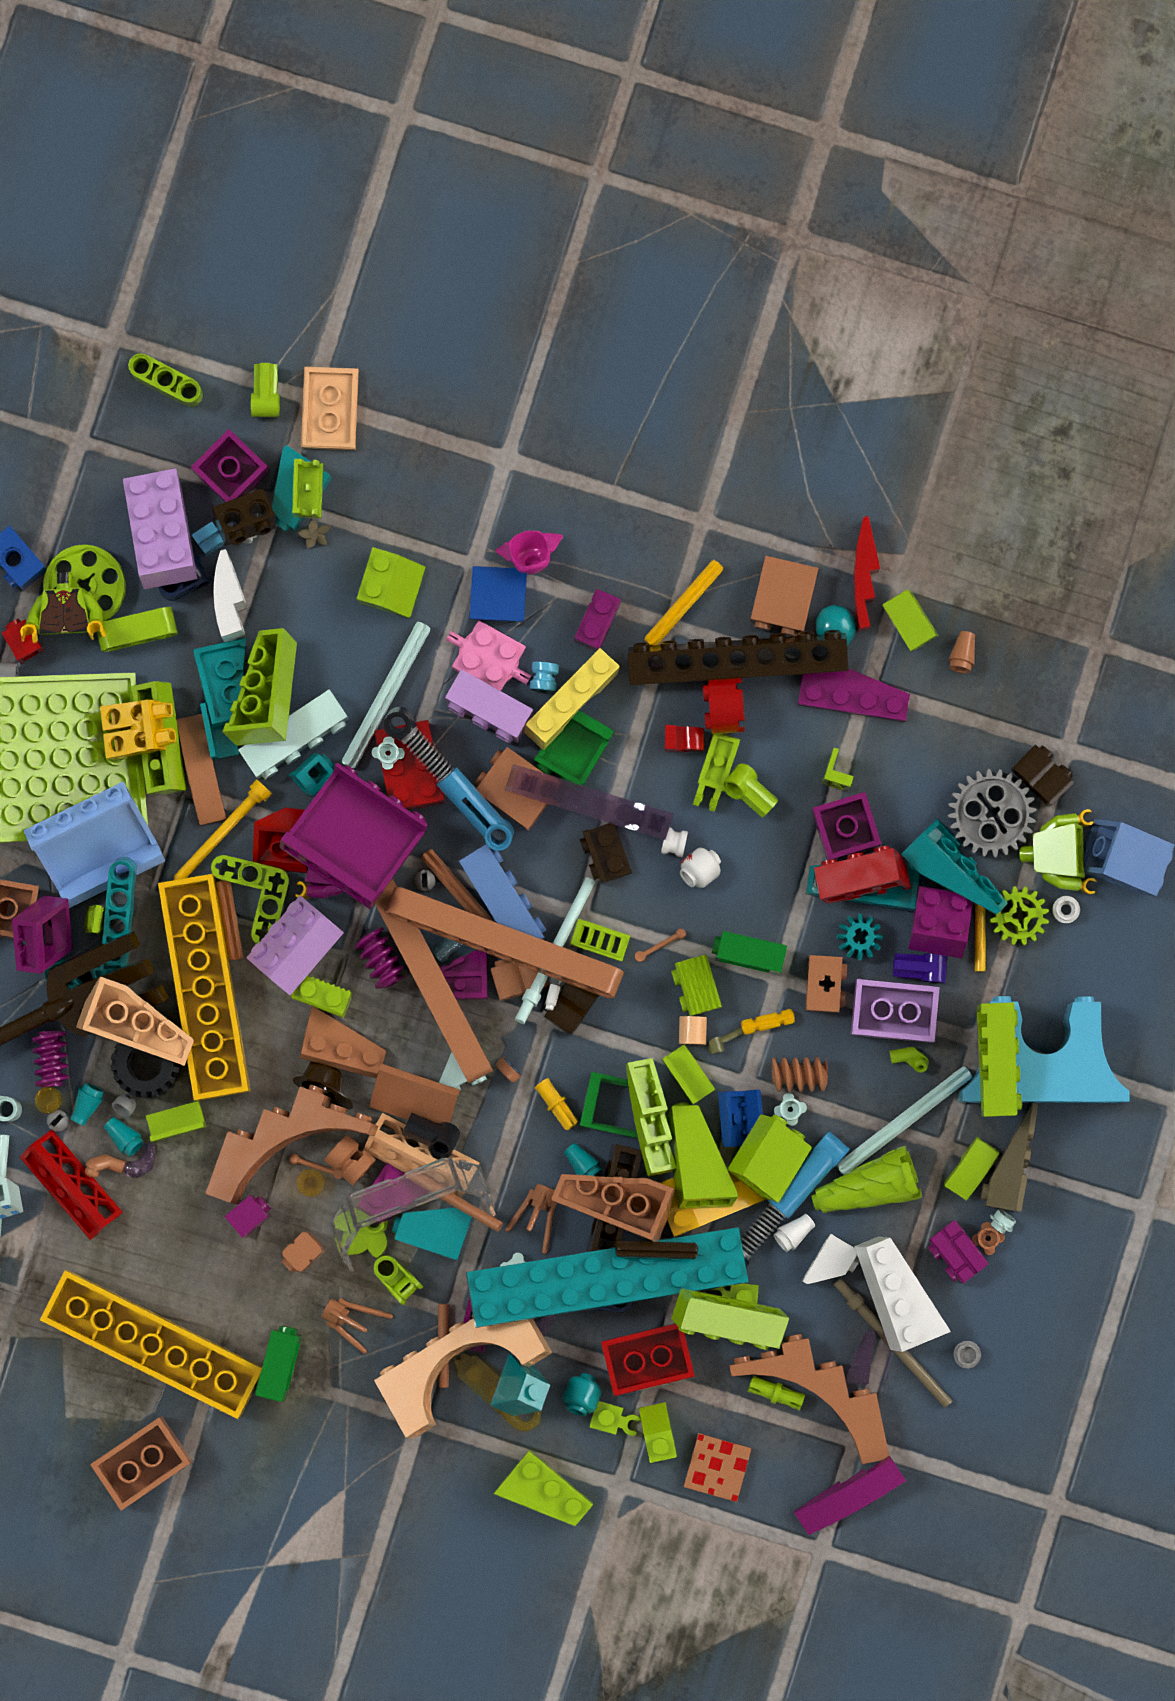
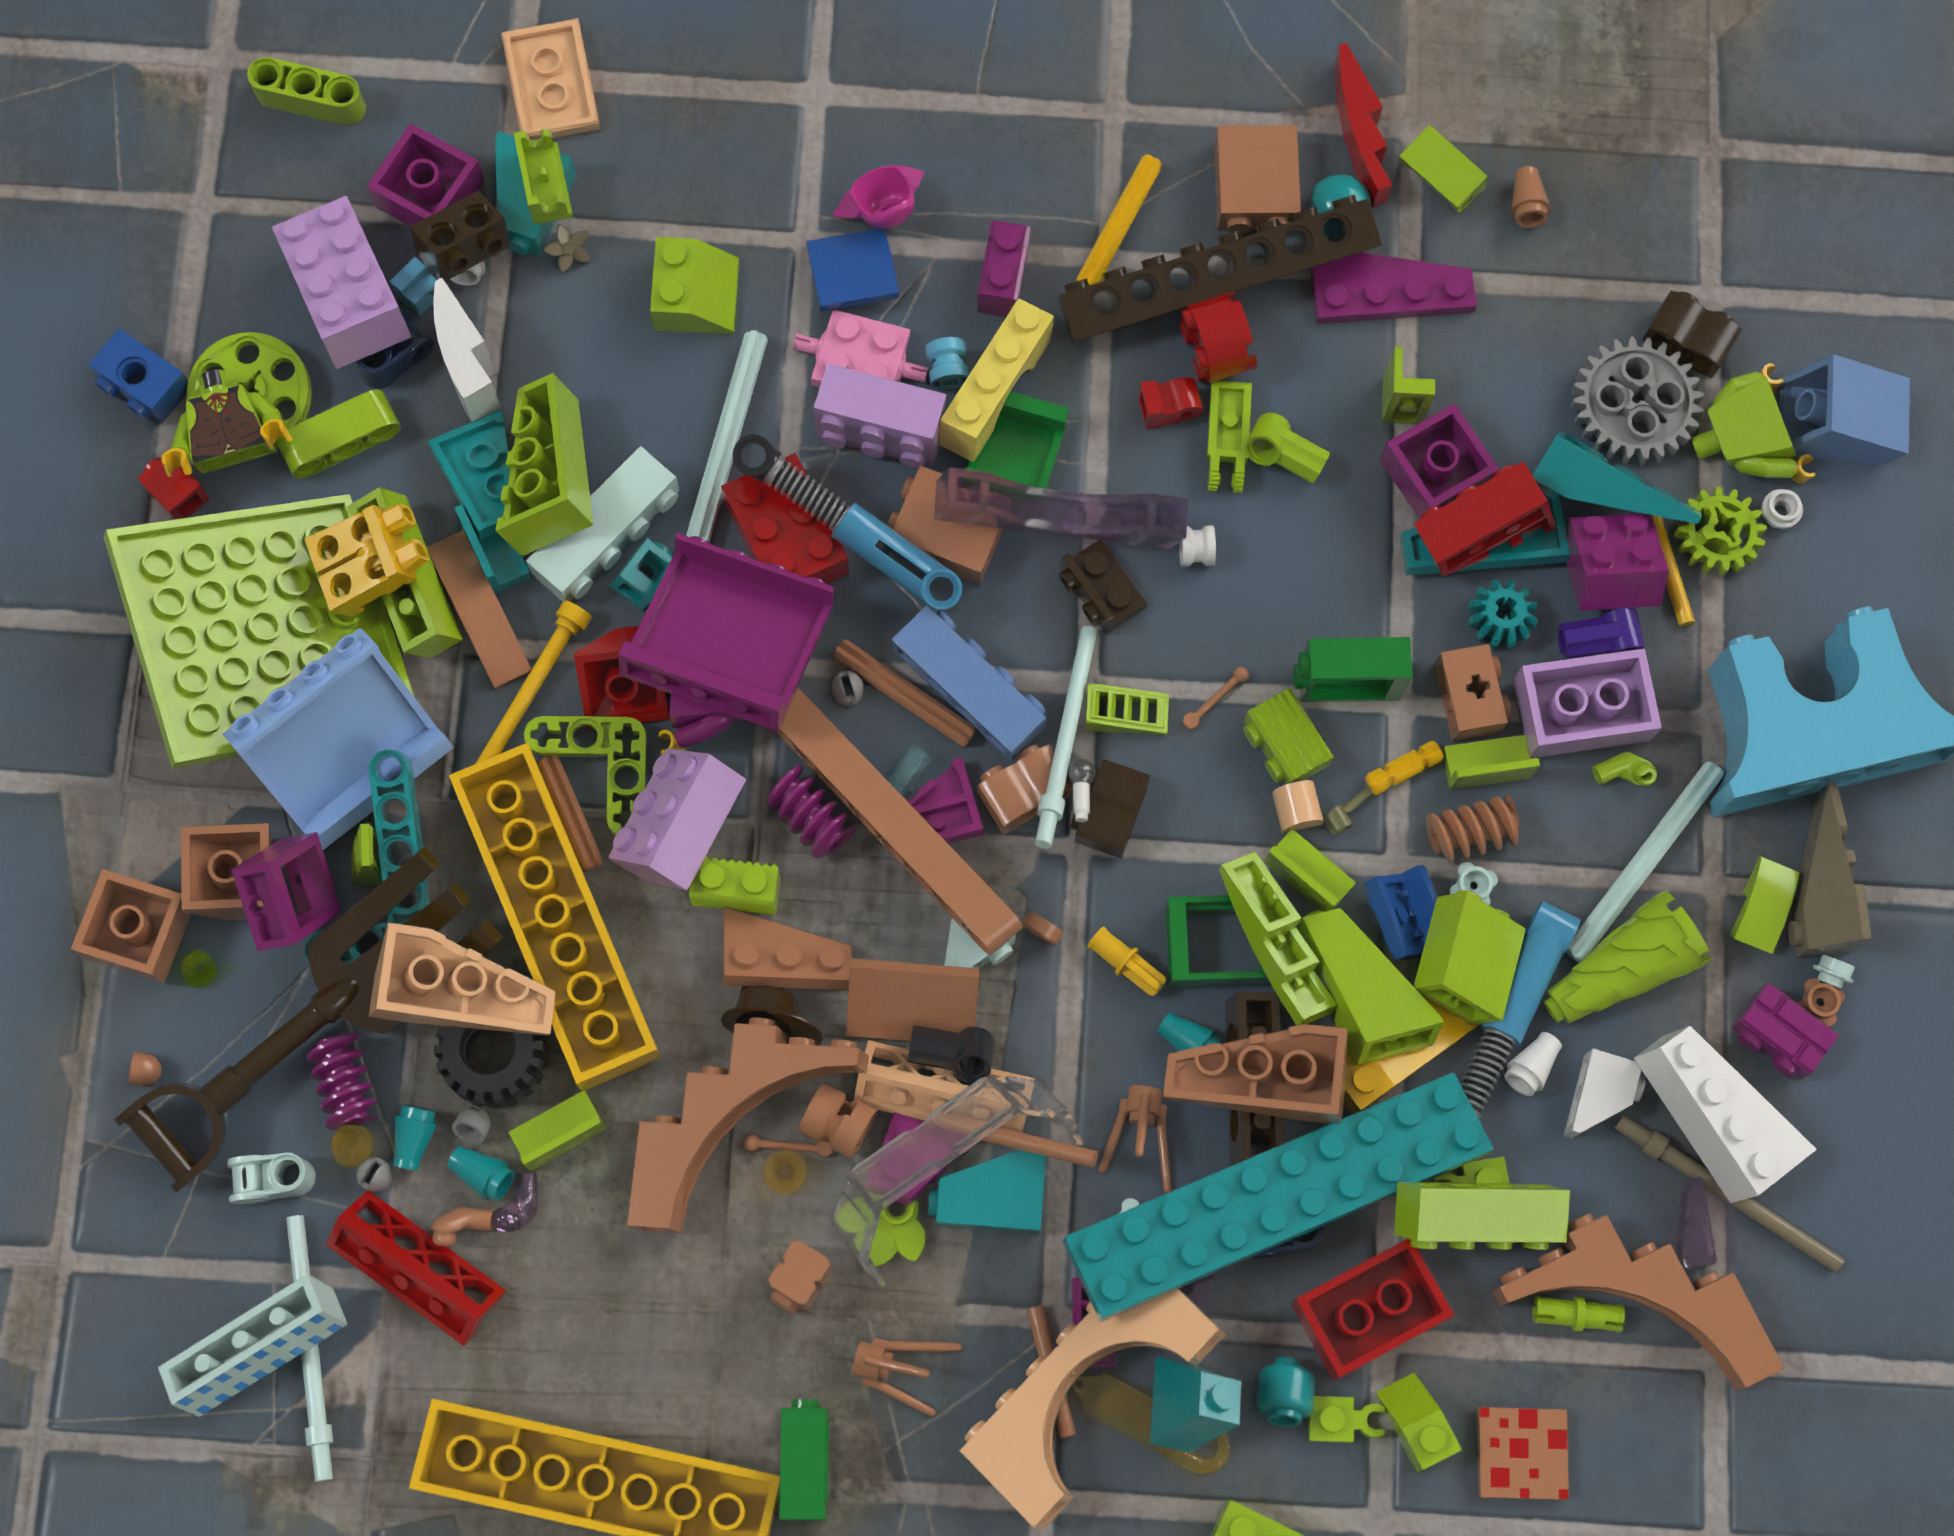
camera: 20 degrees left, 10 degrees down
(249, 1215) = (702, 1241): magenta brick -> none
(265, 399) = (454, 81): lime piece -> none
(380, 753) = (749, 495): light aqua plate -> none
(397, 1279) = (955, 1285): lime piece -> none
(504, 942) = (990, 735): nougat beam -> none
(660, 1250) = (1345, 1131): dark brown axle -> none
(700, 868) = (1244, 572): white head -> none
(823, 1031) = (1488, 762): none -> lime panel
(850, 1496) = (1740, 1445): magenta slope -> none
(967, 1354) = (1844, 1182): light grey plate -> none
(998, 1059) = (1771, 715): lime wedge -> none

